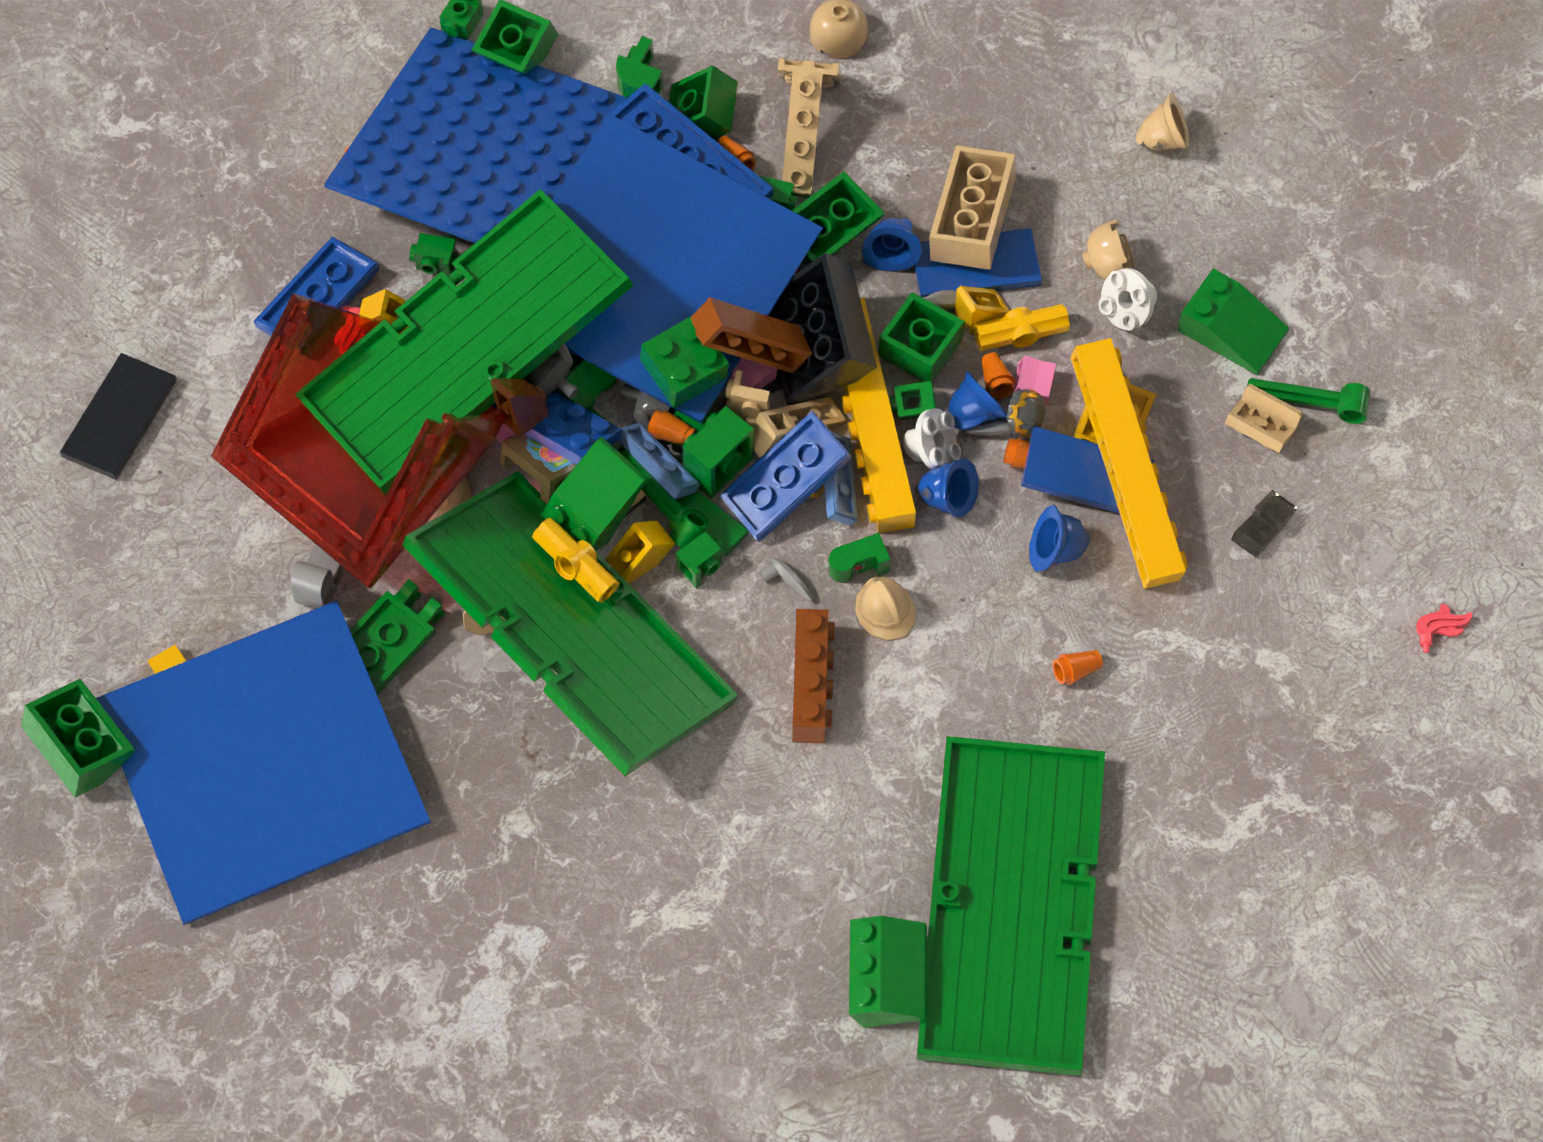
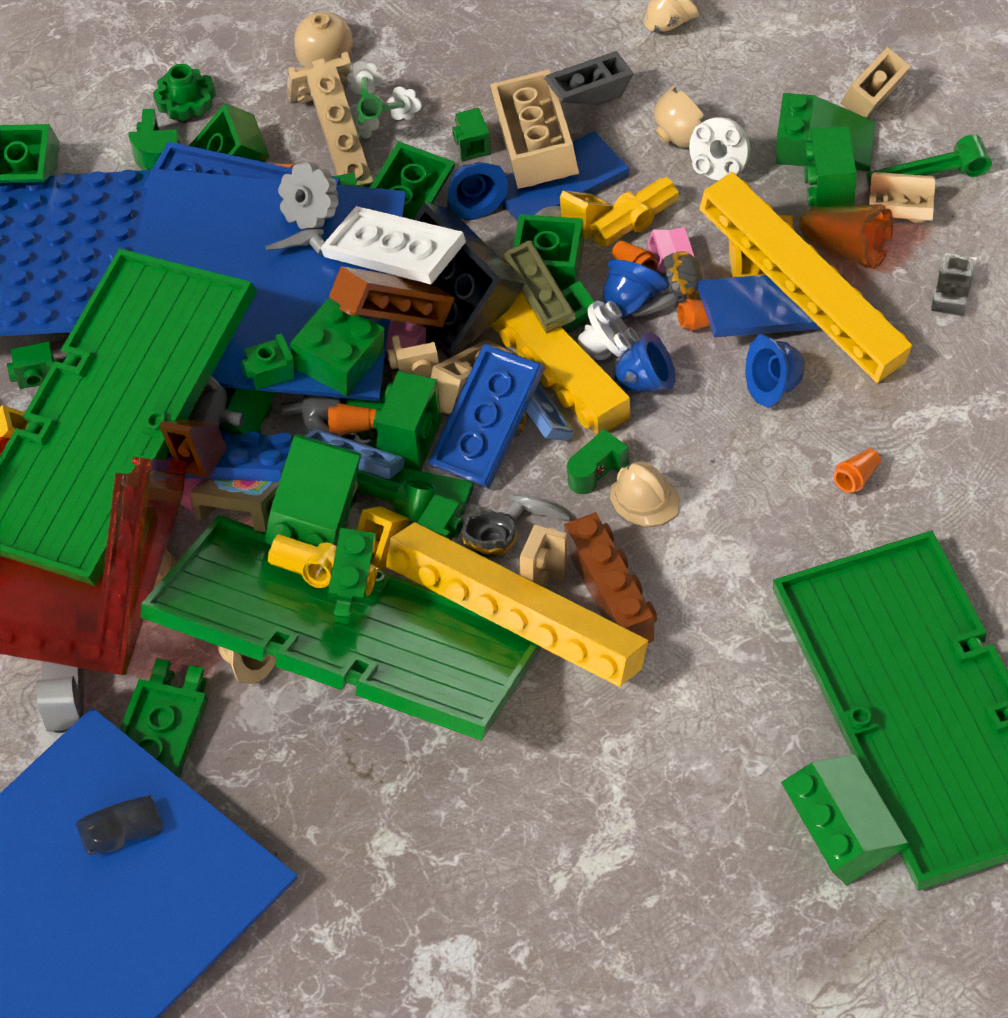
camera: 20 degrees left, 10 degrees down
(310, 714) = (113, 825): none -> clear smoke slope
(590, 579) = (350, 571): none -> green plate
(618, 360) = (268, 363): none -> green brick
(689, 30) = (184, 92): none -> green plant
(711, 240) = (302, 238): none -> light grey bar
(721, 663) = (517, 604): none -> yellow brick
(728, 204) = (308, 195): none -> light grey plant
(735, 586) = (489, 533): none -> dark grey hair
(760, 629) = (544, 556): none -> tan bracket
(778, 283) = (393, 244): none -> white plate
(836, 125) = (371, 105): none -> white plant
(890, 372) = (540, 287): none -> olive tile
(919, 185) = (471, 135): none -> green brick
(1047, 180) = (592, 81): none -> dark grey slope
(1198, 434) = (850, 231): none -> clear orange cone
(1210, 368) = (830, 168): none -> green brick
(1304, 293) = (875, 83): none -> tan brick

